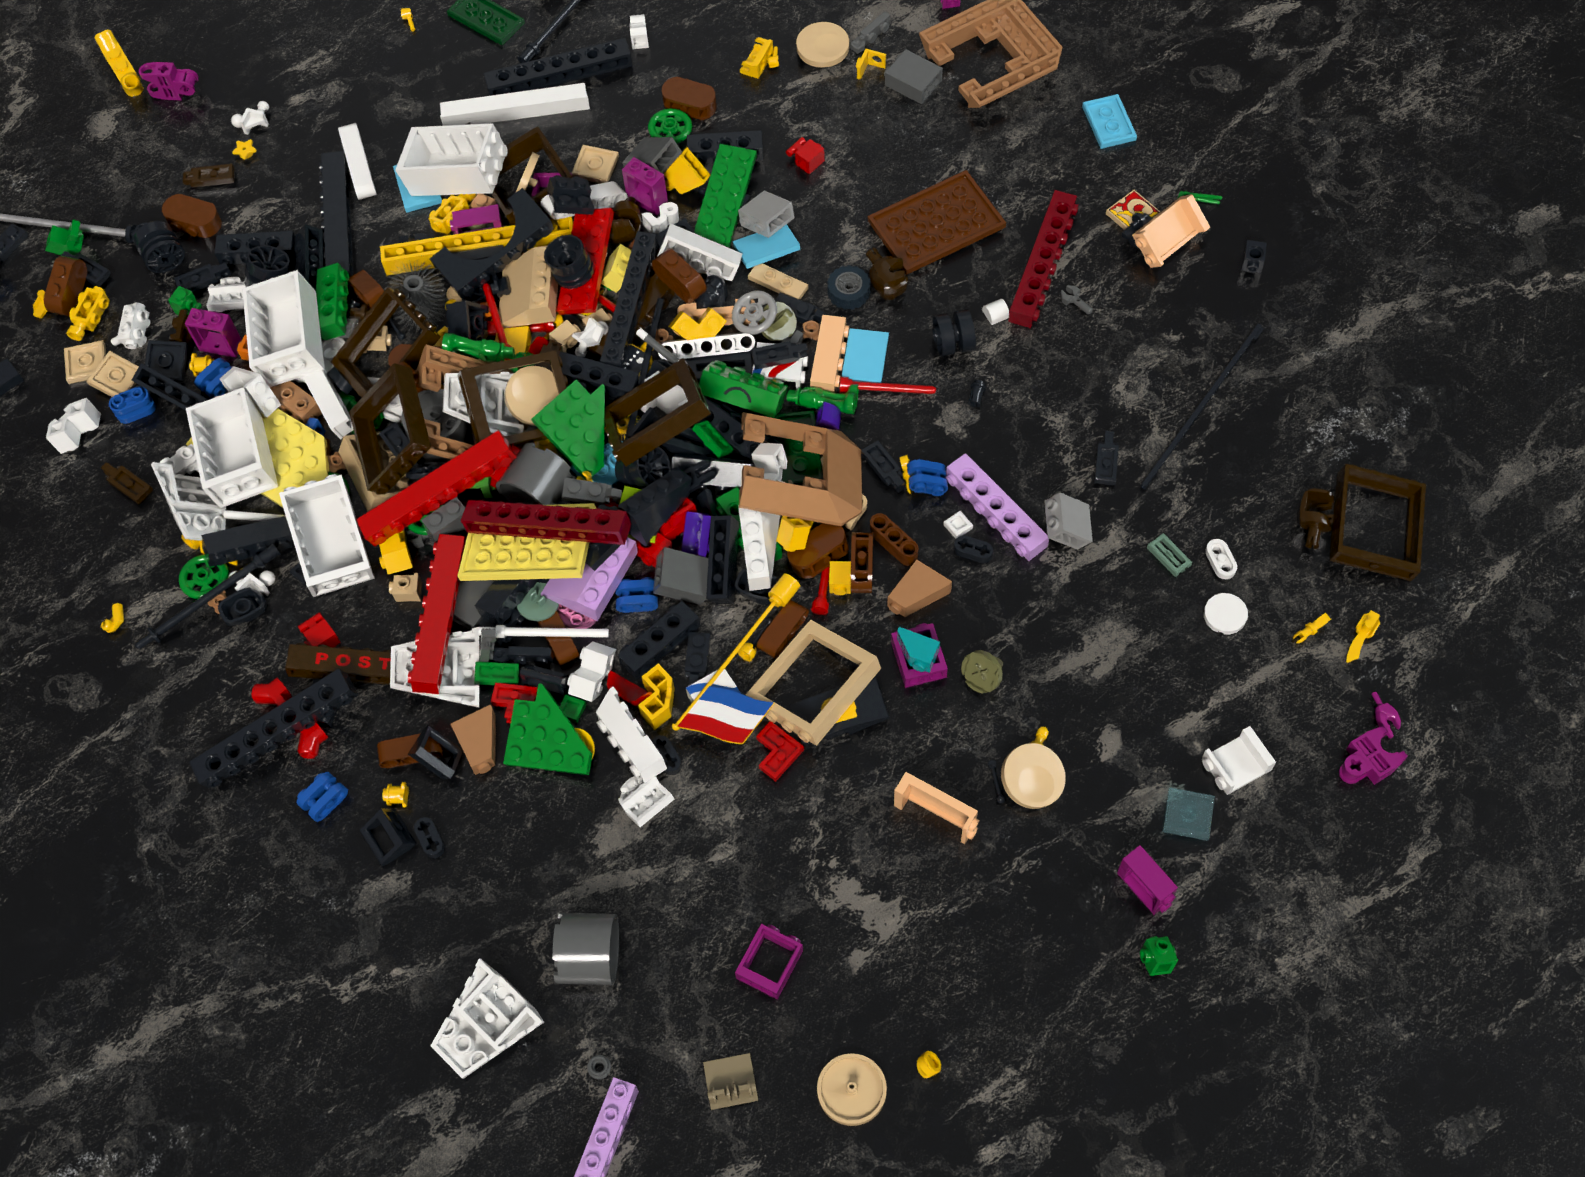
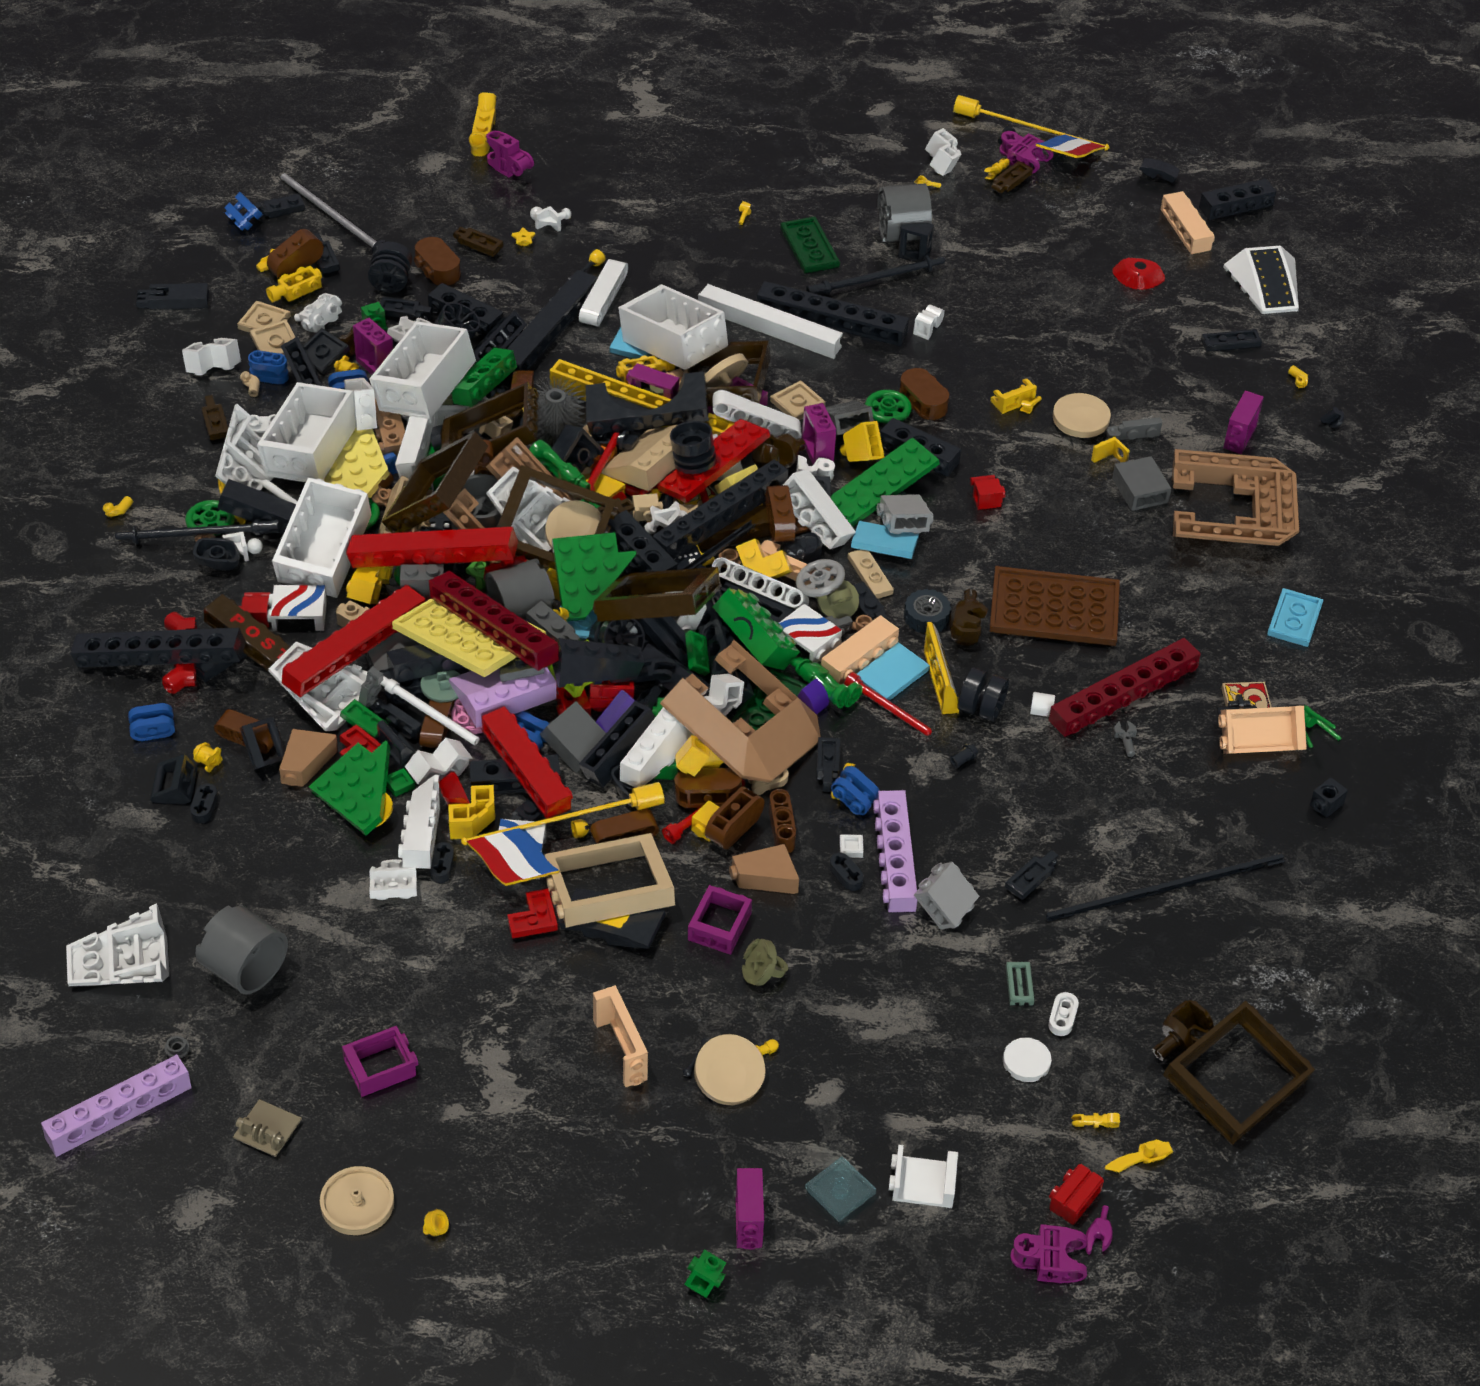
camera: 30 degrees right, 15 degrees down
(65, 240) = (326, 225): green brick -> none
(128, 427) = (252, 382): none -> tan arm
(323, 133) = (596, 258): none -> yellow hinge
(352, 608) = (298, 603): none -> panel
(570, 195) = (741, 400): black plate -> none
(657, 346) = (715, 559): dark grey bar -> none
(668, 626) = (526, 762): none -> red brick
(778, 354) = (811, 620): black hinge -> none
(904, 334) = (940, 671): none -> yellow slope
(918, 649) = (717, 908): teal slope -> none
(1349, 697) = (1075, 1193): none -> red brick

